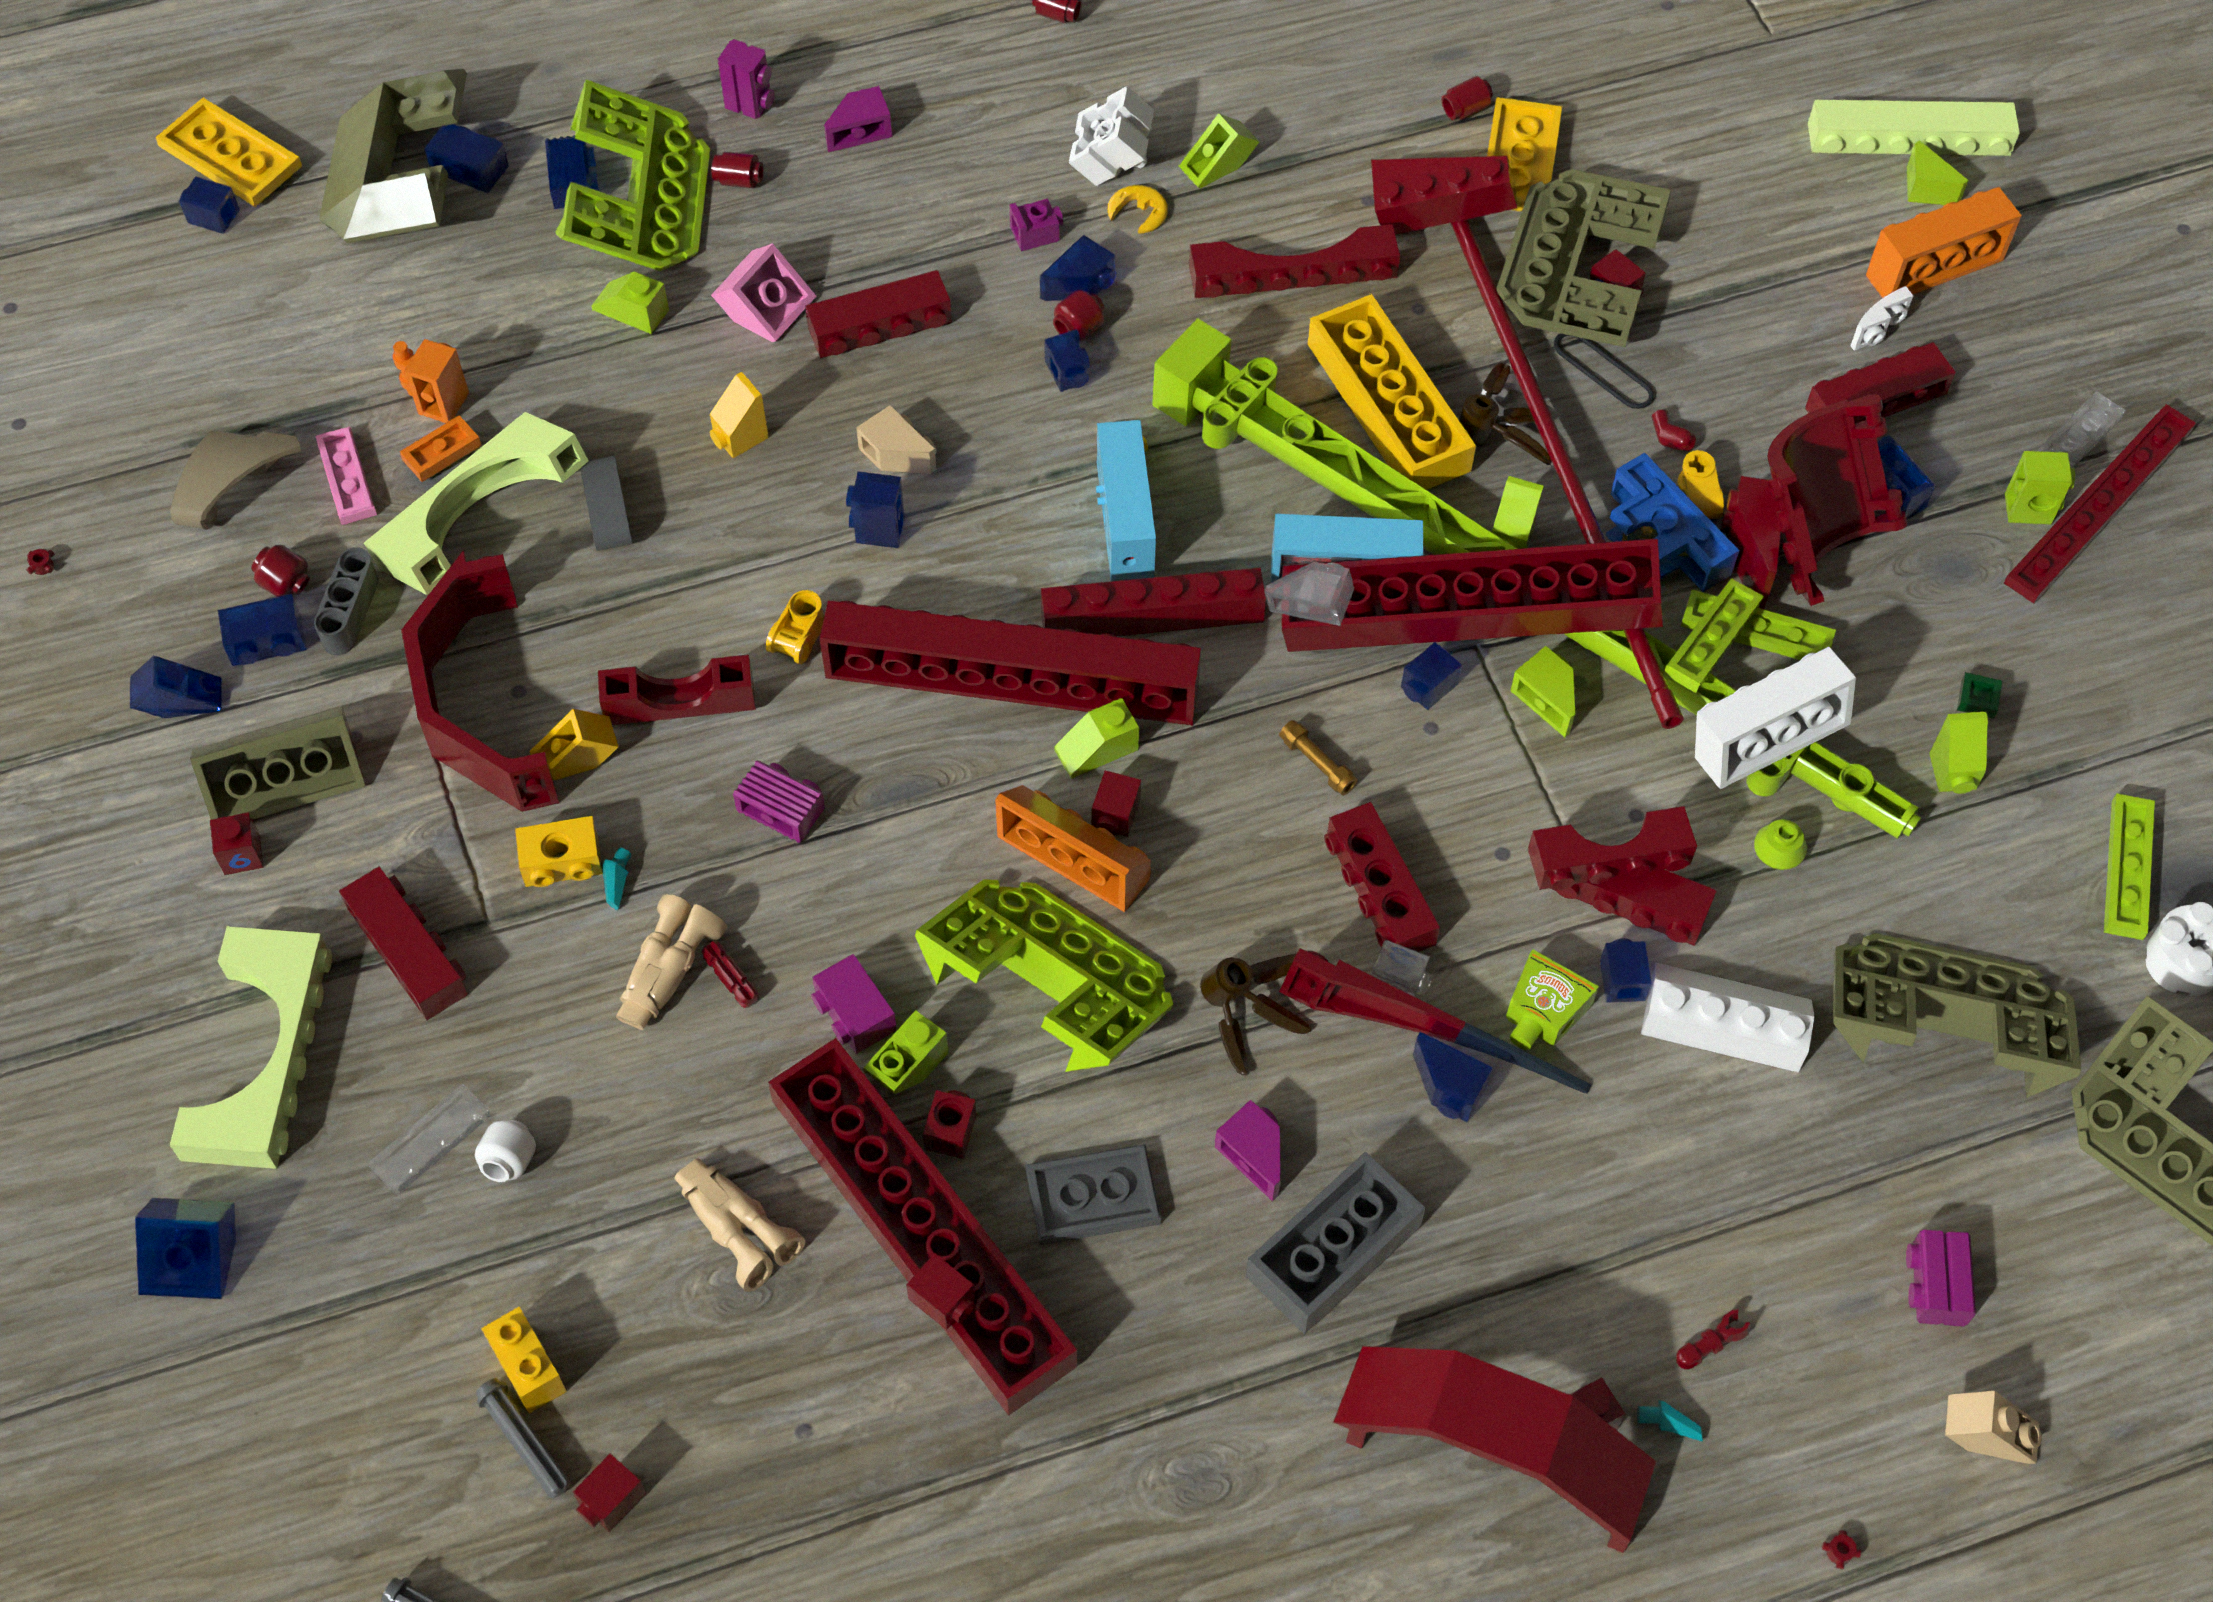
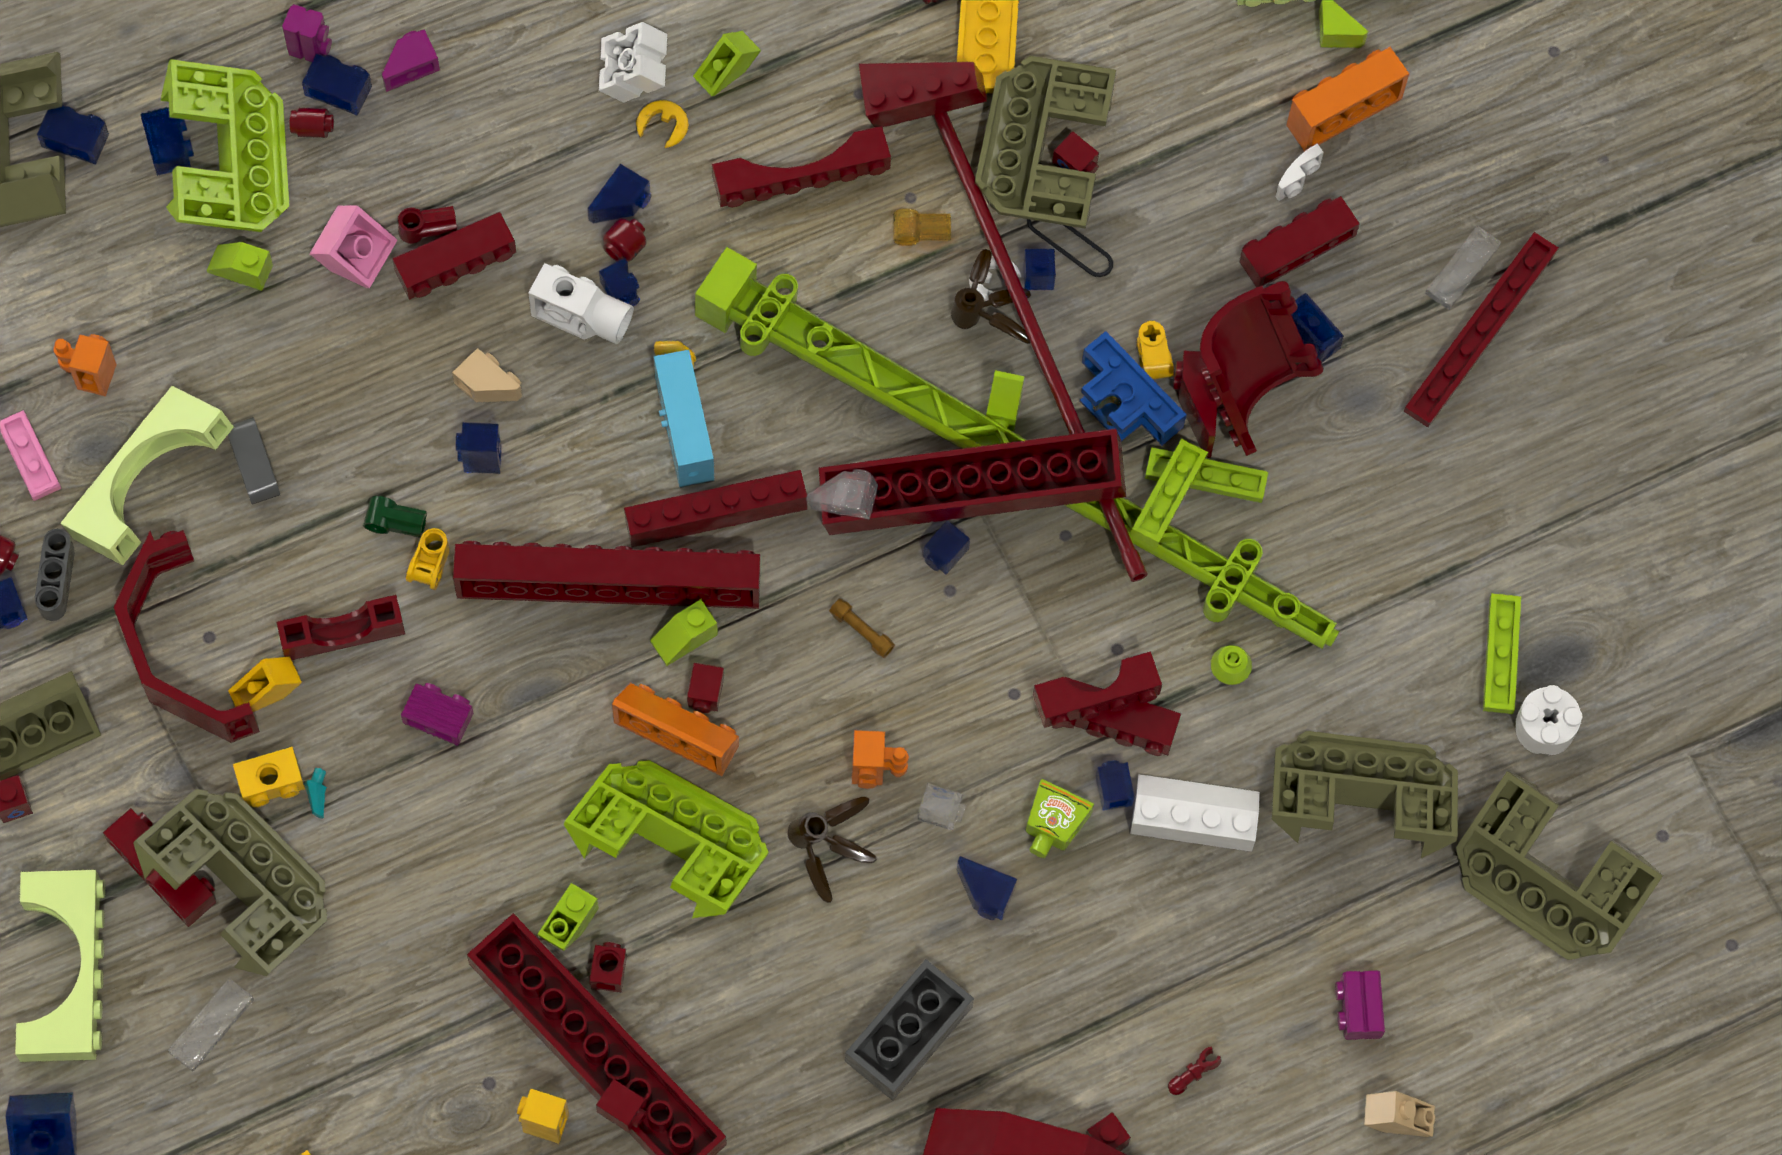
camera: 10 degrees left, 10 degrees up
(440, 448) = (104, 423): orange plate -> none
(505, 1150) = (271, 1027): white head -> none
(542, 977) = (252, 861): none -> olive slope
(661, 966) = (367, 865): tan piece -> none
(729, 1210) = (449, 1057): tan piece -> none
(730, 974) = (420, 863): dark red axle -> none
(739, 417) = (352, 372): yellow slope -> none
(754, 576) = (386, 516): none -> dark green piece
(772, 135) = (337, 83): none -> clear blue brick
(838, 1297) = (543, 1115): none -> yellow brick
(840, 278) = (429, 222): none -> dark red piece
(854, 1004) = (520, 879): magenta brick -> none
(1013, 372) = (577, 305): none -> white brick
(1035, 224) = (573, 158): magenta brick -> none
(1092, 1194) = (723, 1010): dark grey tile -> none
(1253, 1146) = (841, 960): magenta slope -> none
(1320, 903) = (872, 757): none -> orange brick
(1341, 539) = (865, 442): medium azure brick -> none
(1360, 995) = (918, 829): dark red plate -> none
(1364, 830) = (903, 688): dark red brick -> none
(1390, 393) = (893, 291): yellow brick -> none
(1428, 334) = (912, 227): none -> clear yellow piece
(1547, 688) = (1040, 547): lime slope -> none
(1566, 388) = (1039, 269): none -> clear blue brick
(1669, 1420) = (1165, 1135): teal bar -> none
(1672, 435) = (1129, 302): dark red arm -> none
(1774, 717) = (1217, 567): white brick -> none
(1960, 752) = (1368, 574): lime slope -> none
(1979, 694) = (1384, 517): dark green plate -> none
(2039, 487) = (1428, 326): lime brick -> none

